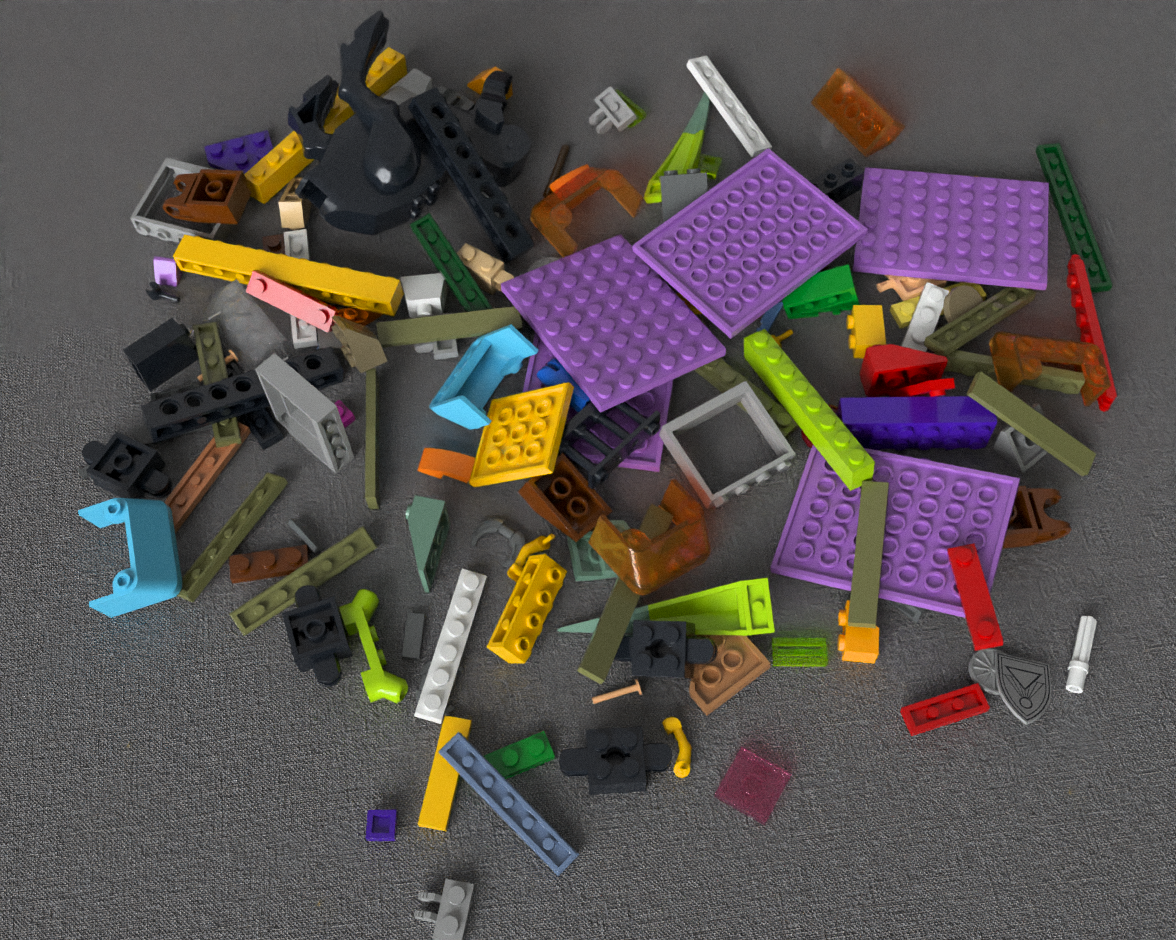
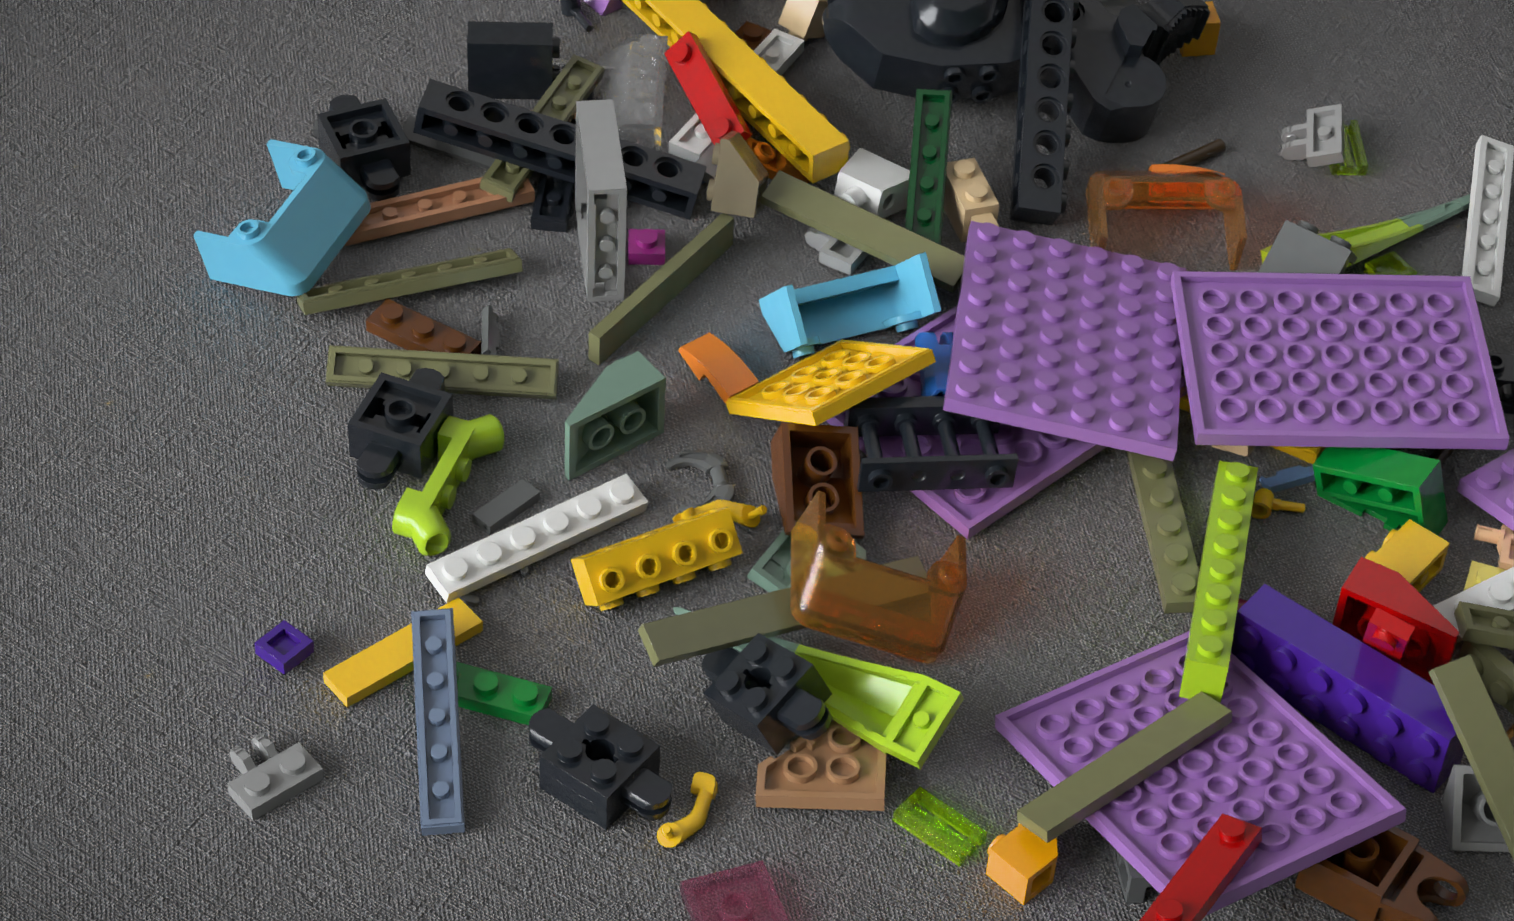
camera: 35 degrees right, 15 degrees down
(636, 687) = (704, 723): light nougat pin -> none
(745, 395) = (1083, 504): light grey window -> none

